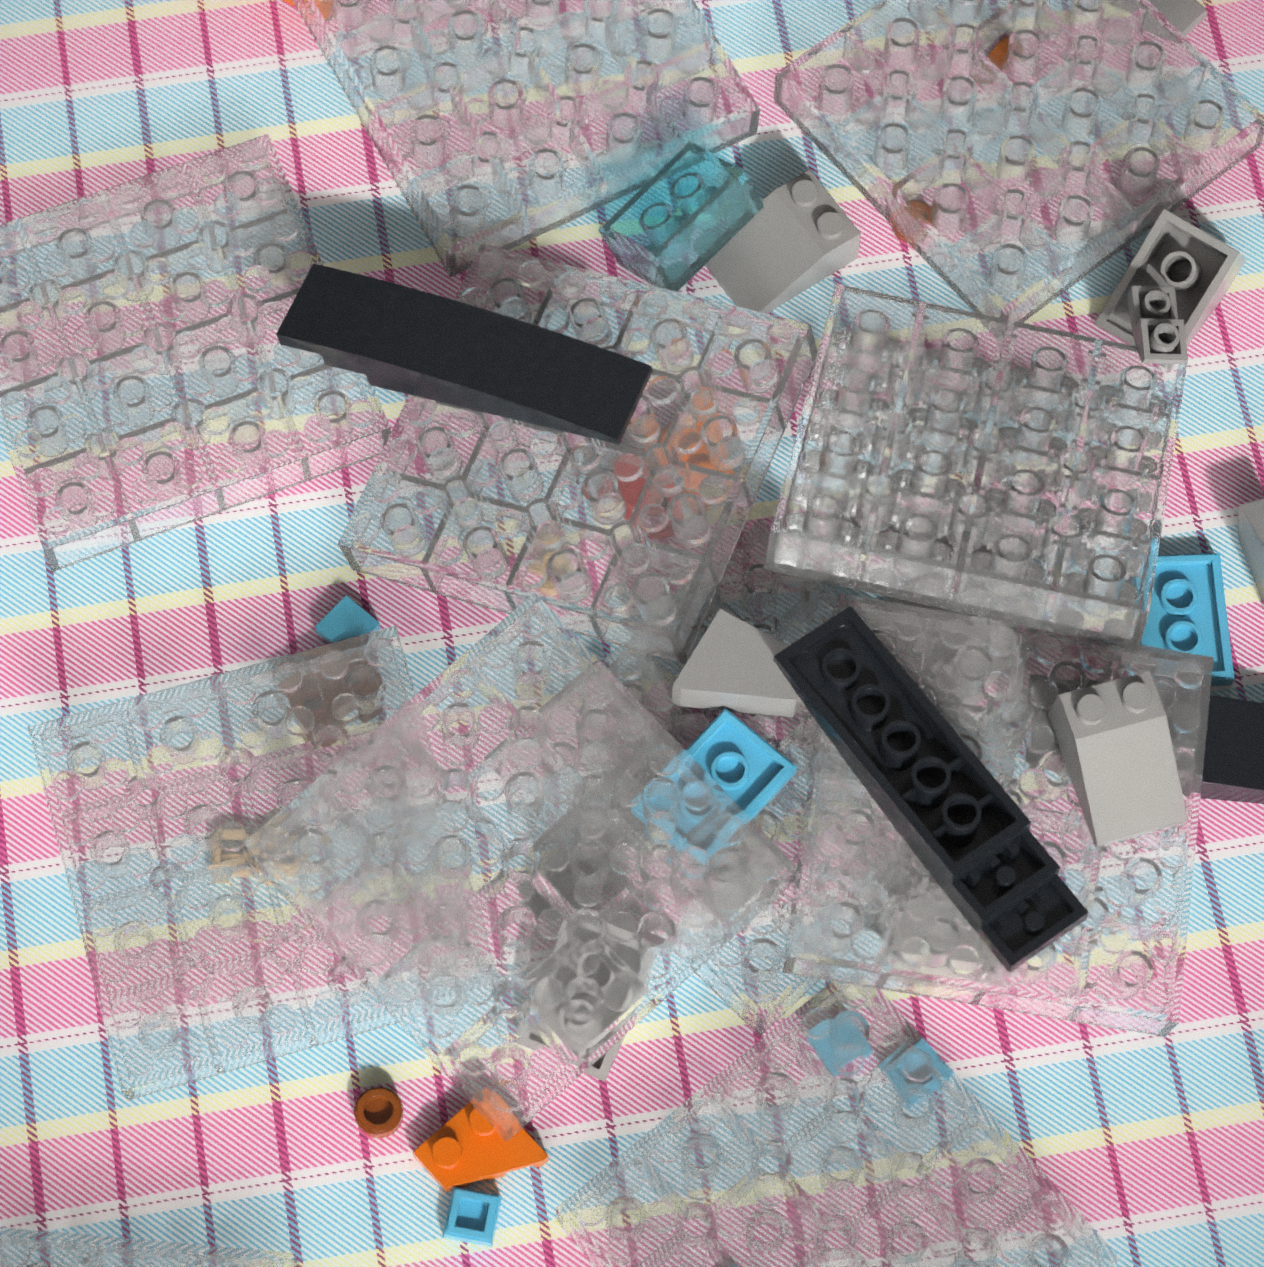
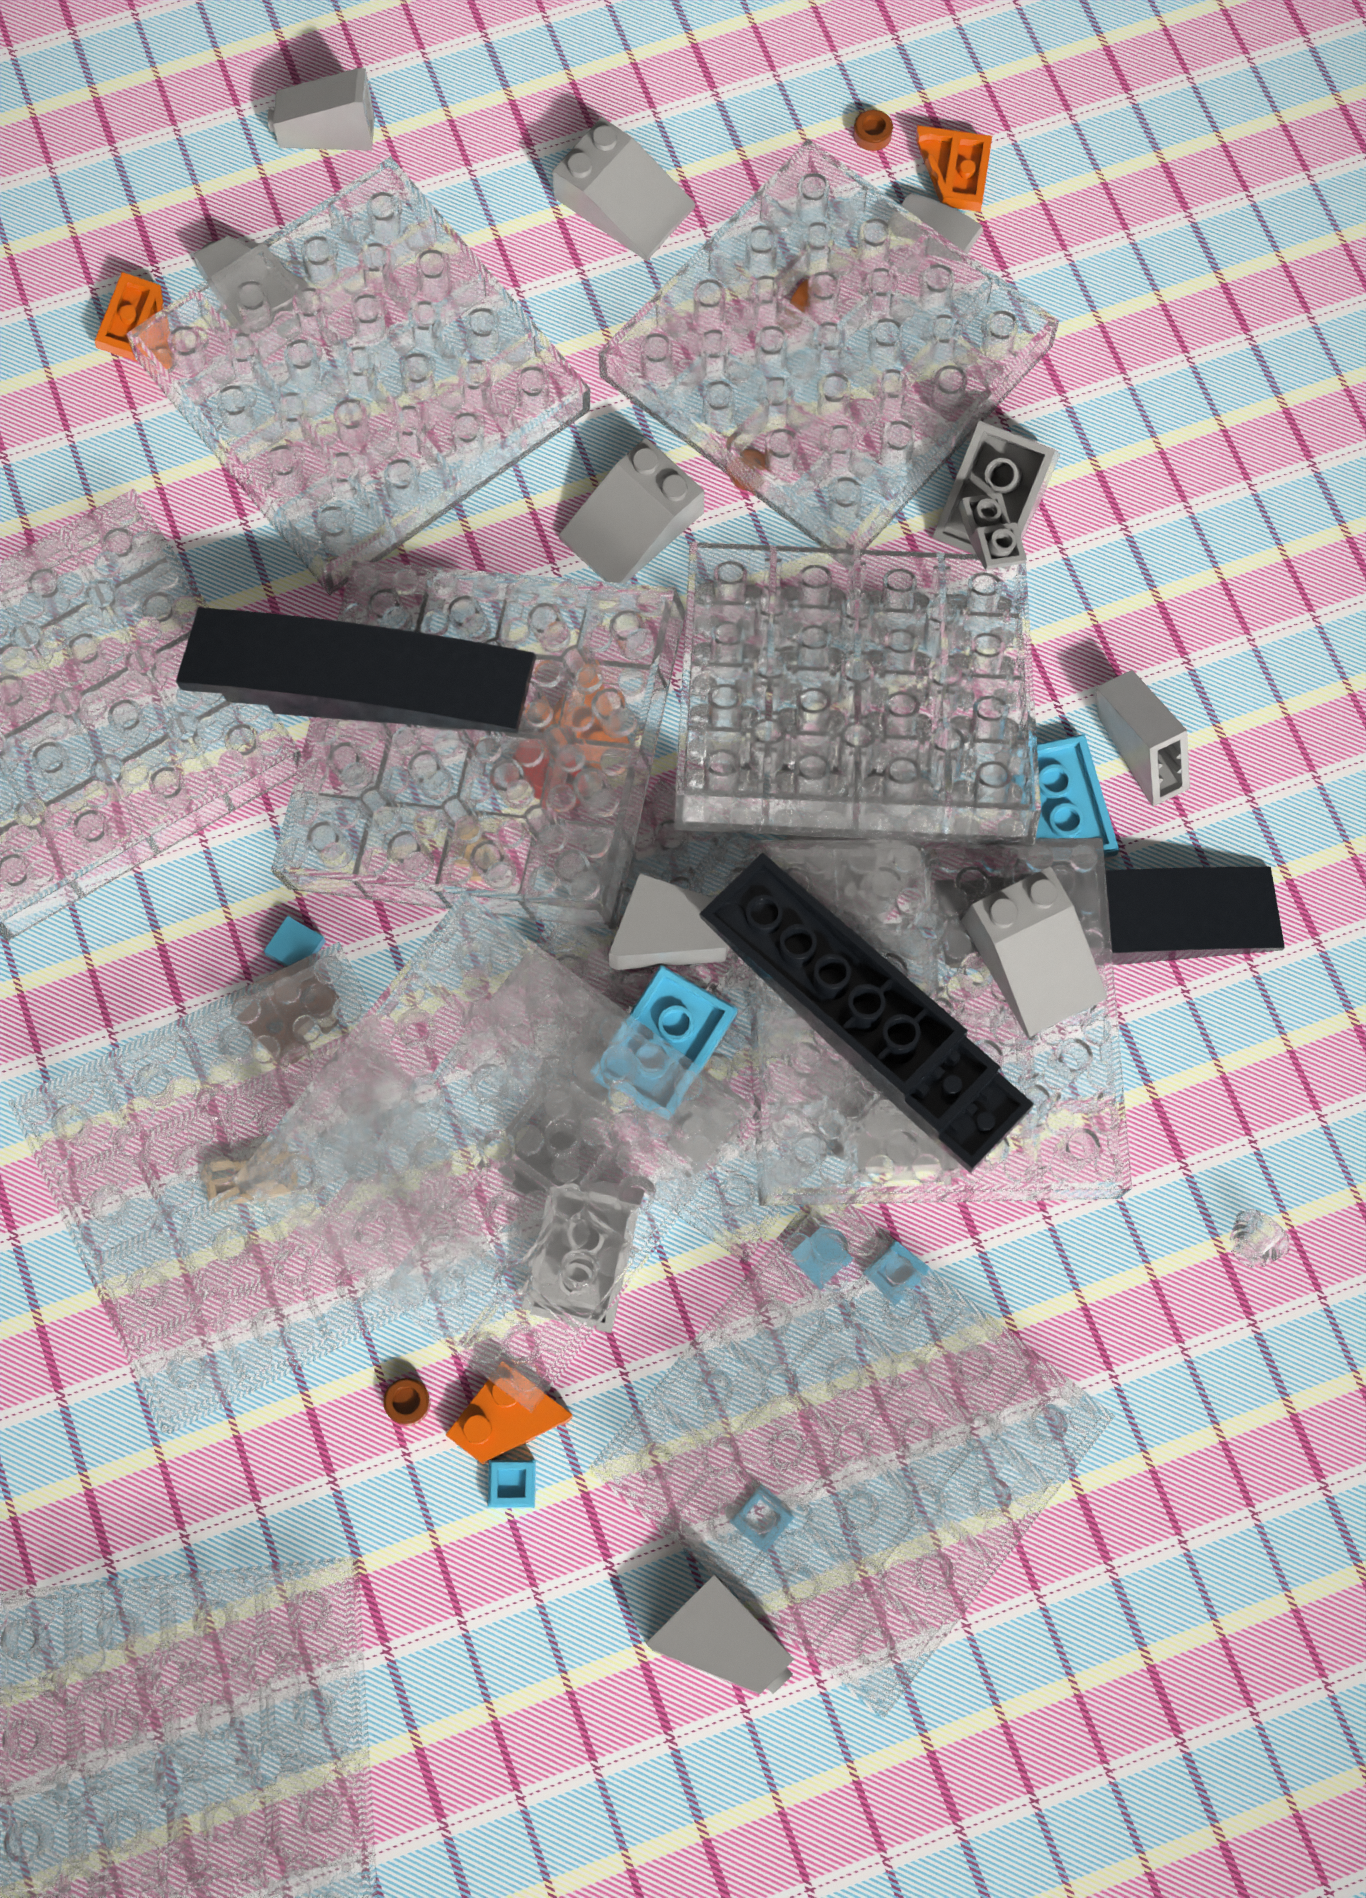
camera: 10 degrees left, 5 degrees up
(681, 217) = (535, 504): clear light blue brick -> none

